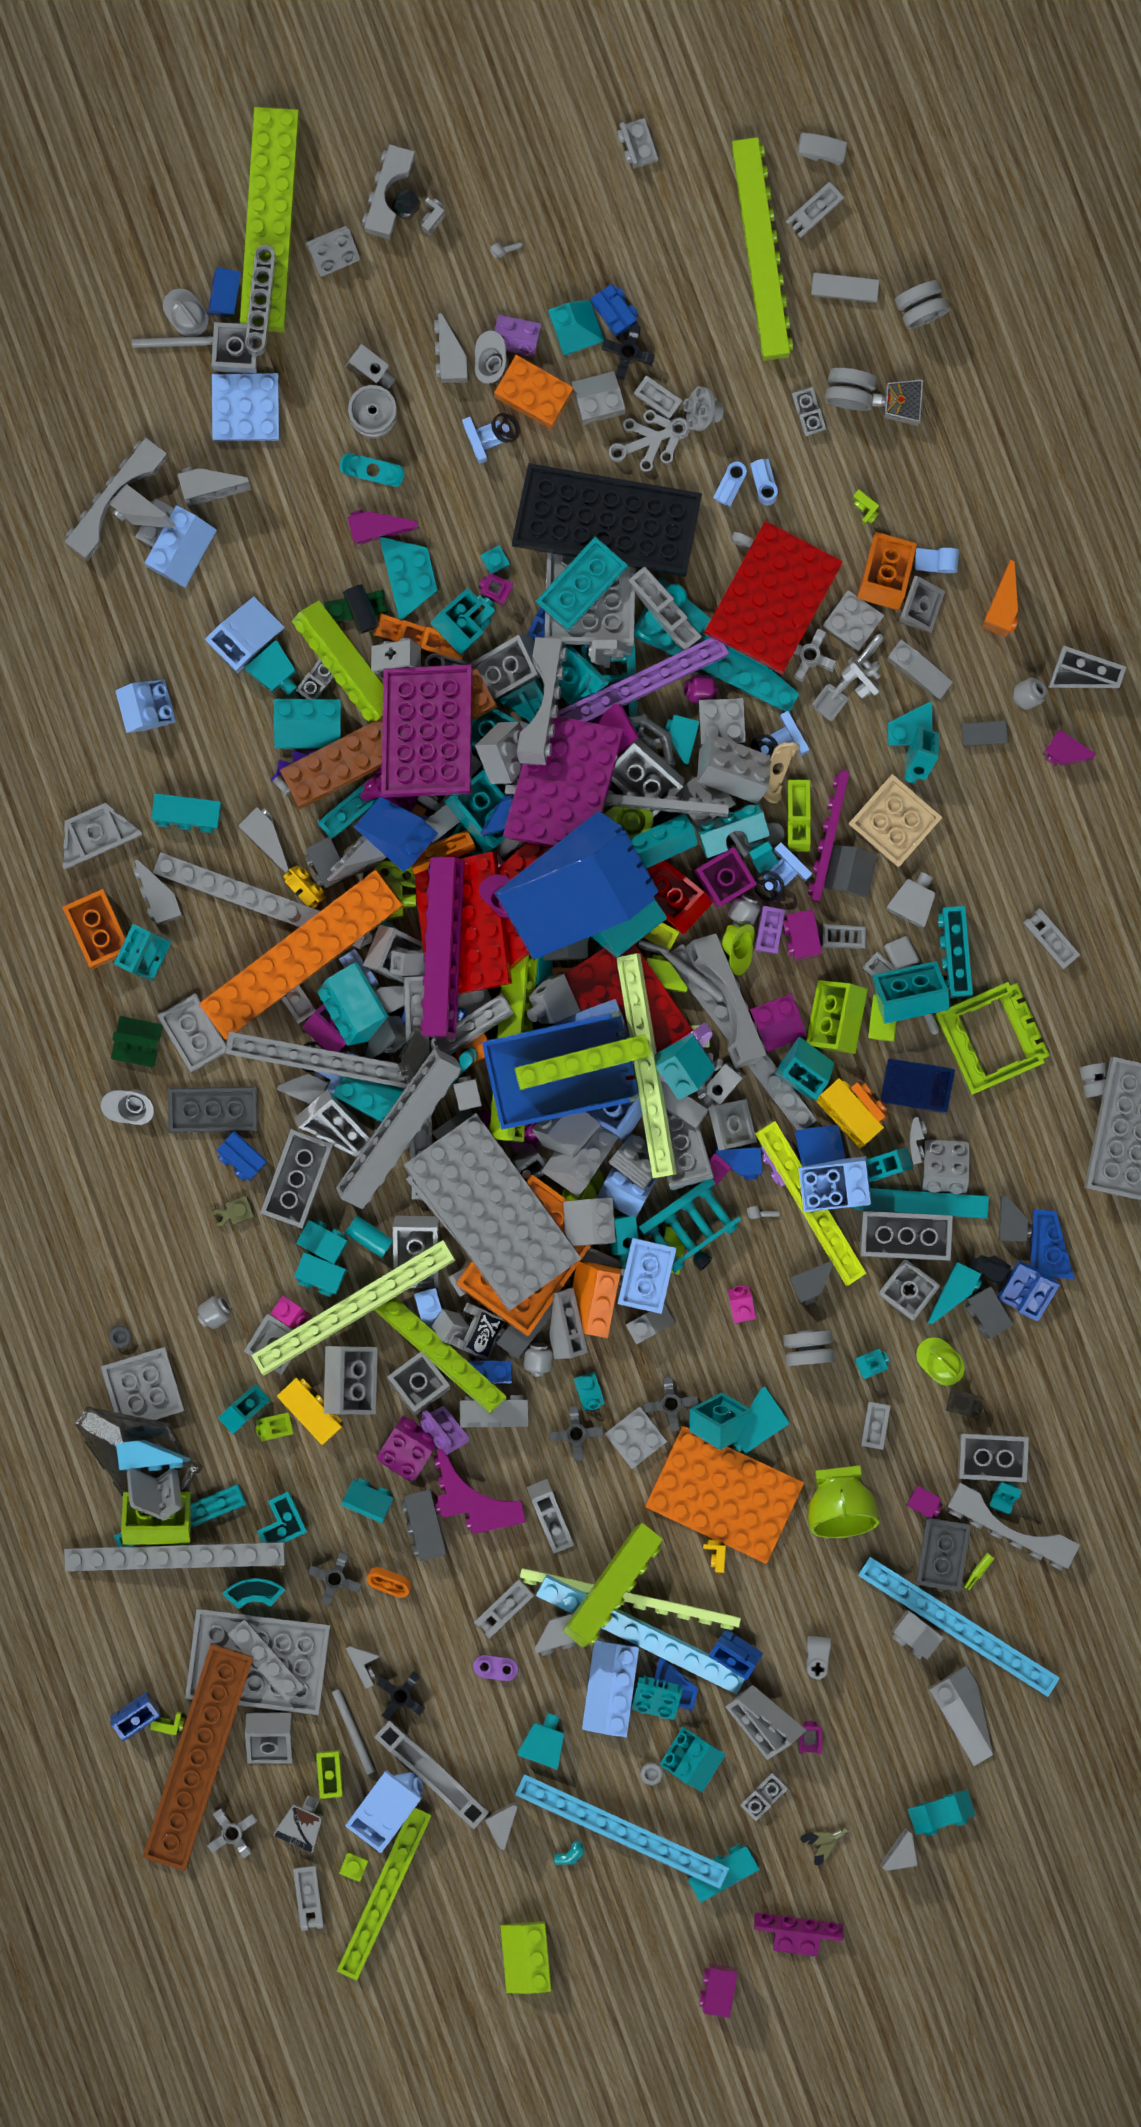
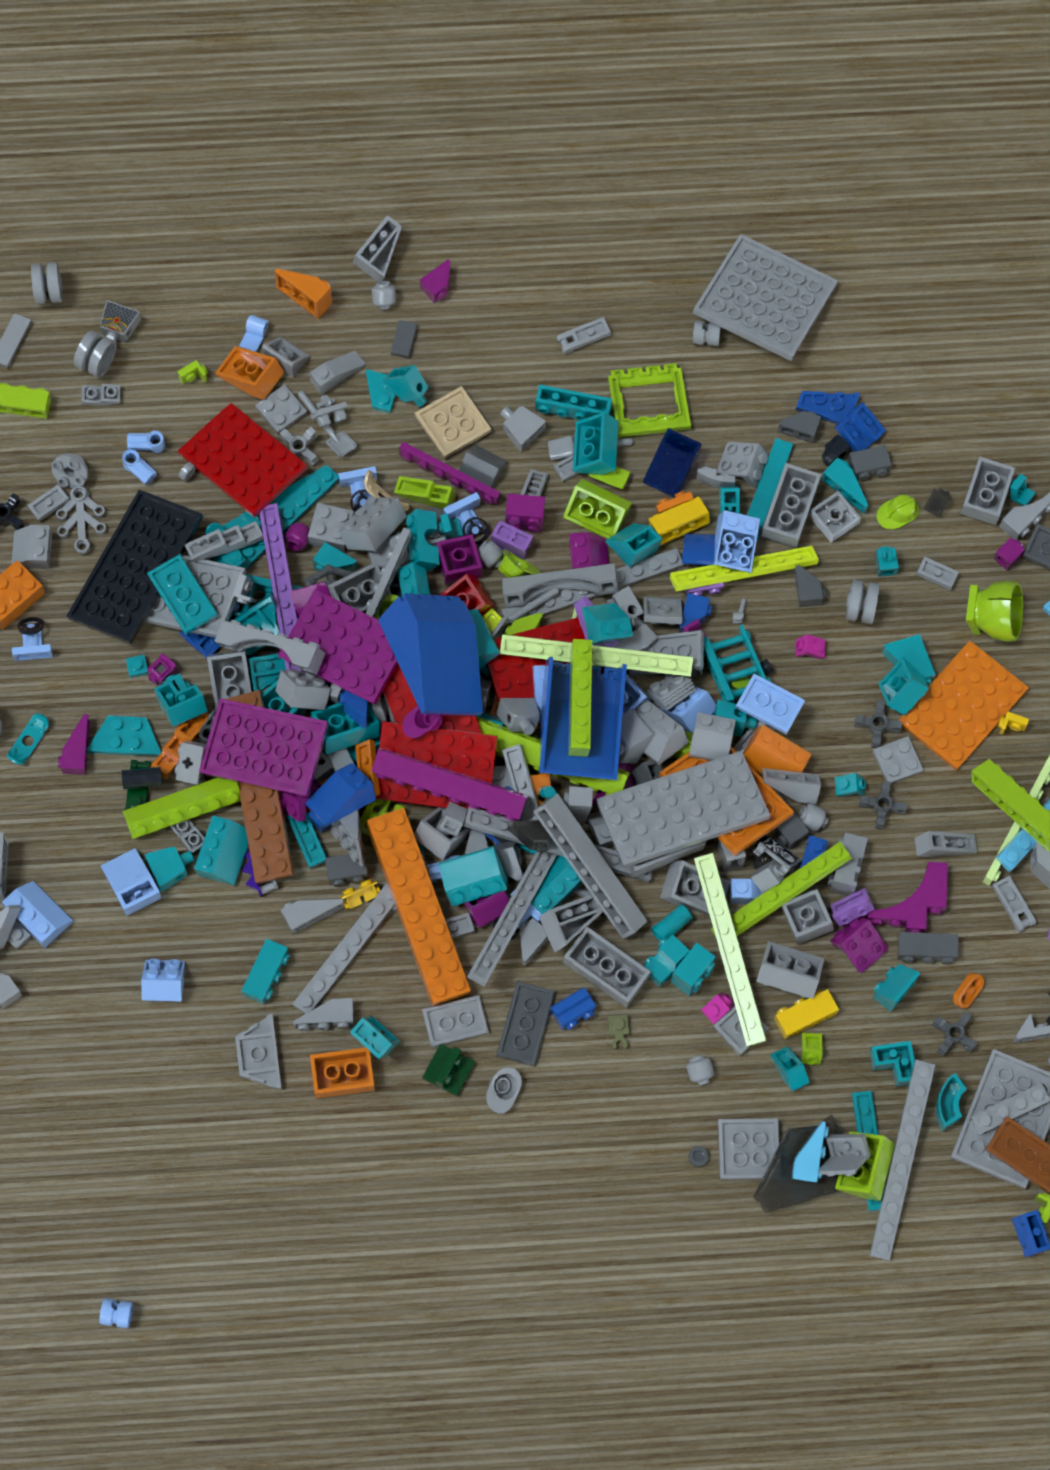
camera: 80 degrees left, 15 degrees down
(649, 1324) = (809, 724): light grey slope -> none

